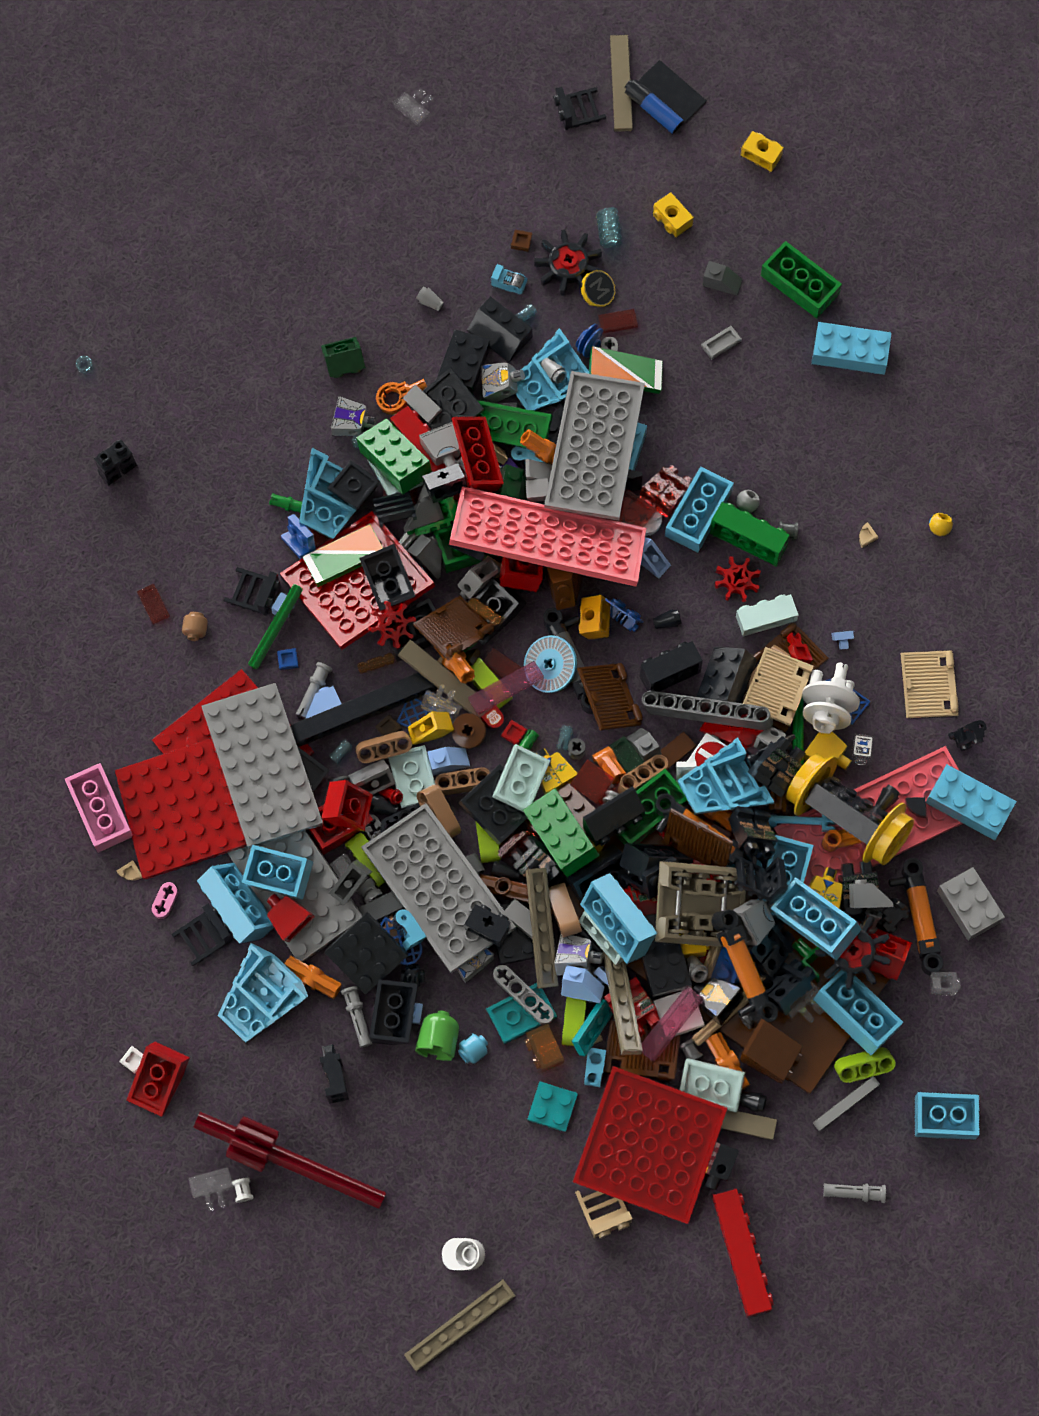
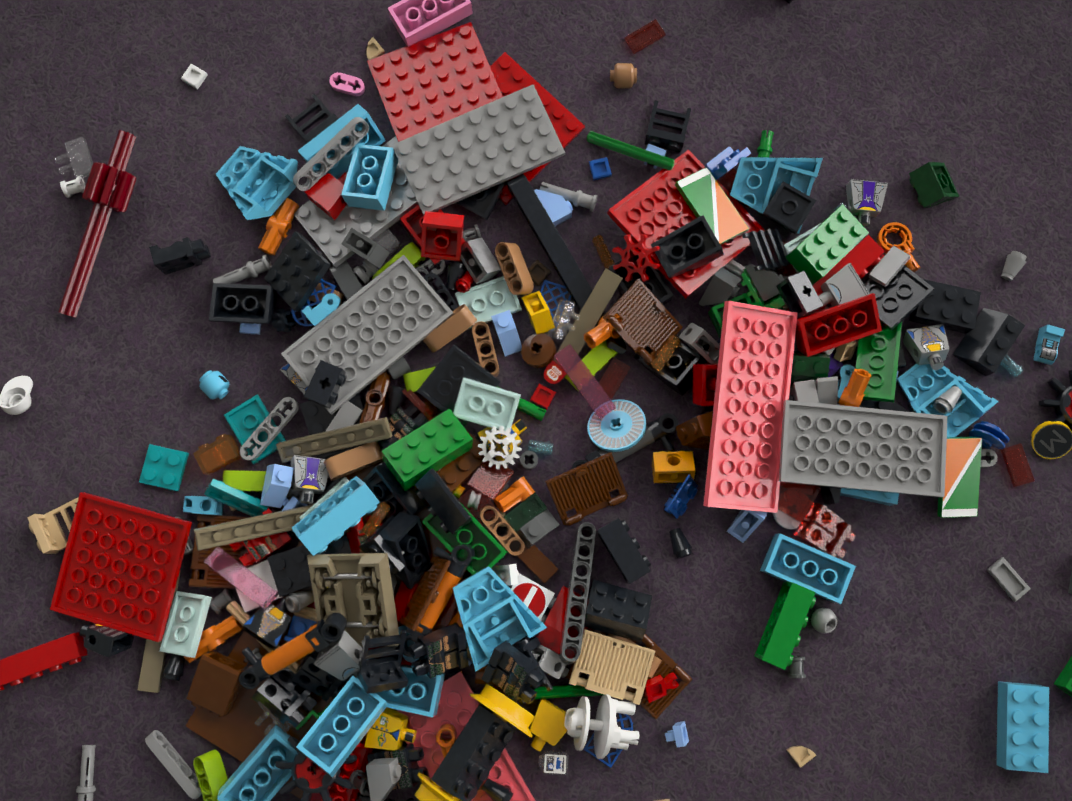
camera: 85 degrees right, 10 degrees up
(157, 1078) = (176, 98): red slope -> none
(250, 906) = (328, 163): none -> light grey beam
(342, 749) = (507, 228): clear light blue pin -> none
(438, 1036) = (221, 350): bright green cylinder -> none
(567, 775) = (493, 453): none -> white gear
(629, 889) = (376, 518): none -> clear orange axle
(733, 573) = (739, 607): red gear -> none
(766, 615) = (696, 649): light aqua brick -> none
(823, 821) = (468, 688): medium azure hinge -> none

